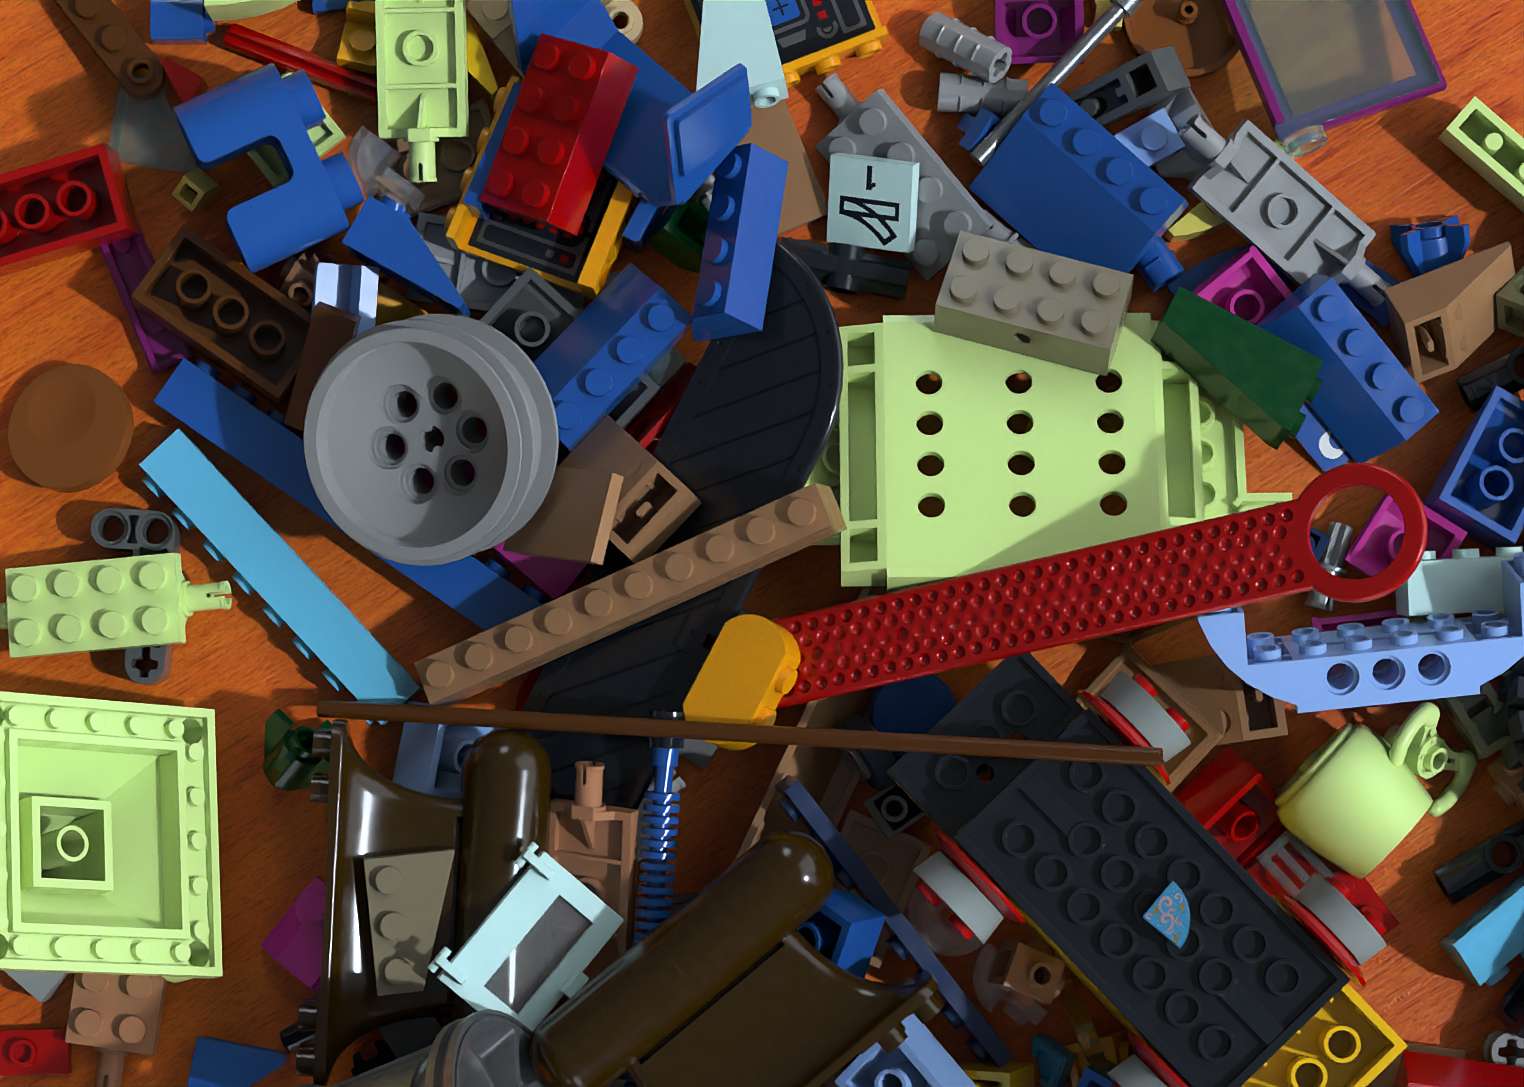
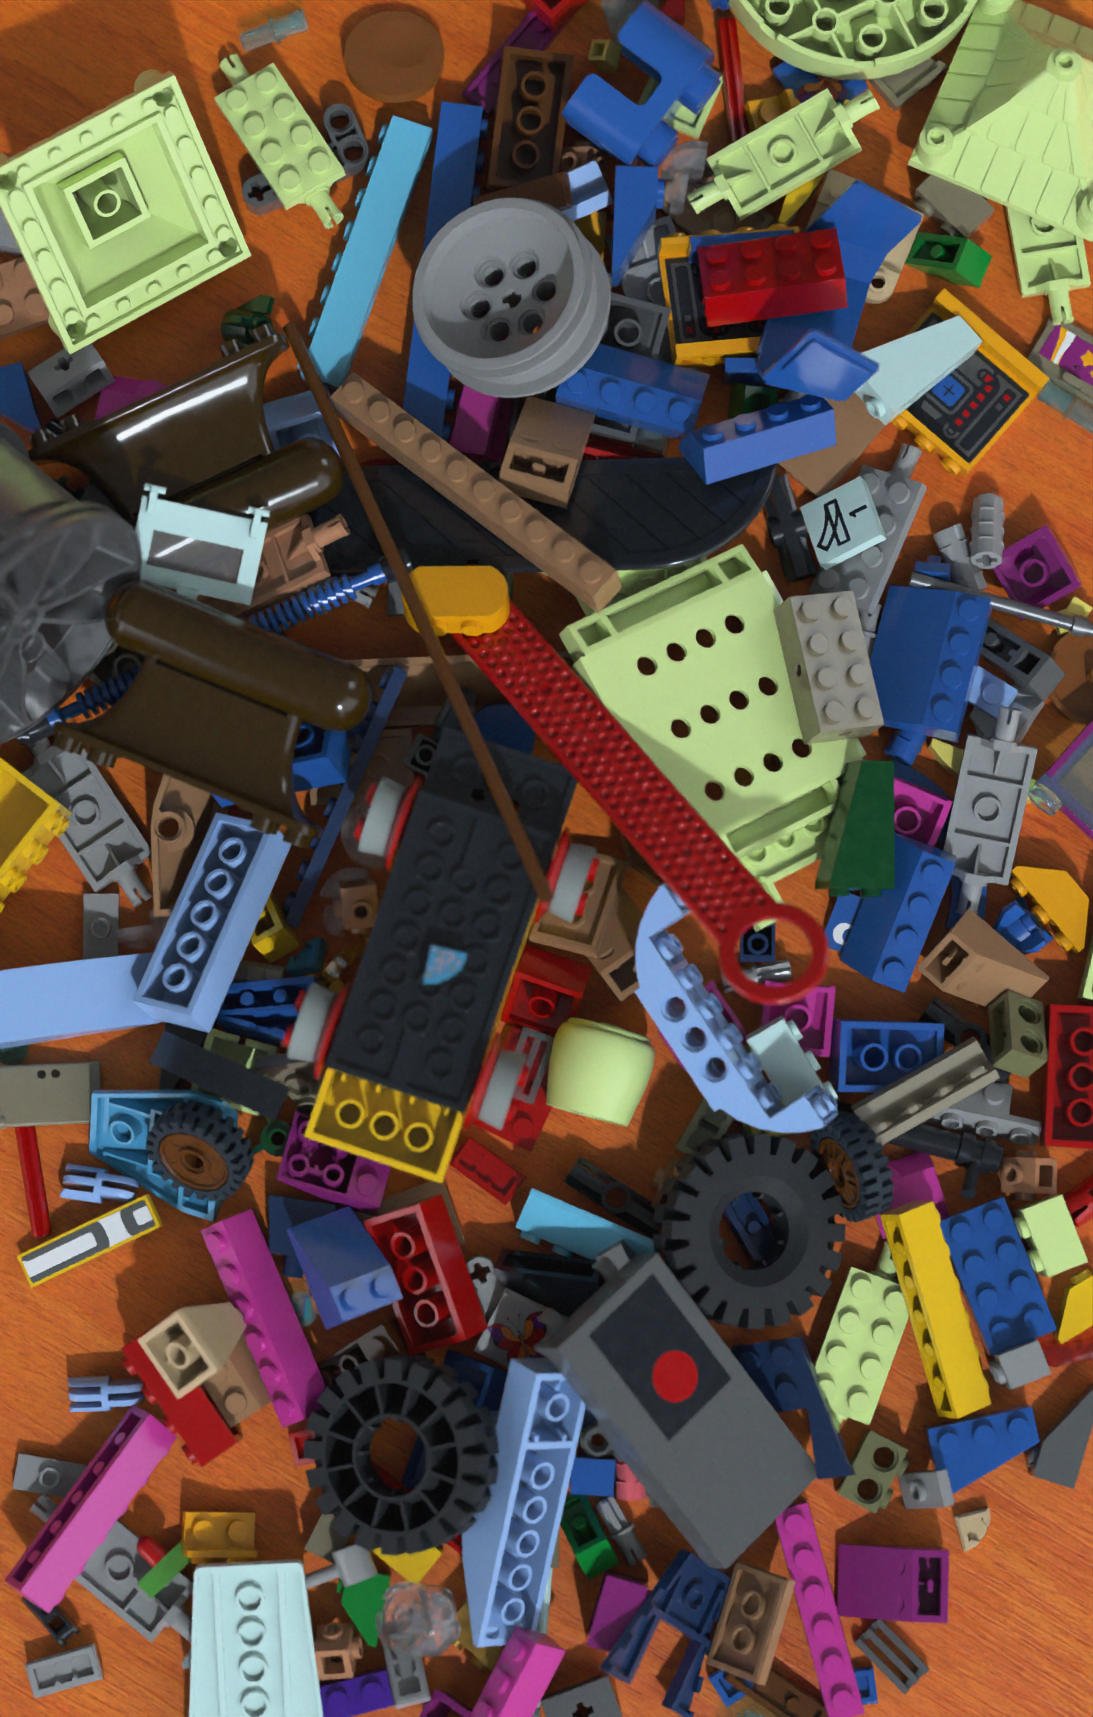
camera: 60 degrees right, 0 degrees up
(248, 992) = (71, 378): none -> light grey brick
(404, 915) = (174, 452): dark tan wing -> none
(572, 519) = (507, 422): medium nougat tile -> none
(1401, 980) = (487, 1170): none -> red plate
(1419, 189) = (1055, 901): none -> light orange slope
(1427, 754) = (658, 1108): yellowish green piece -> none

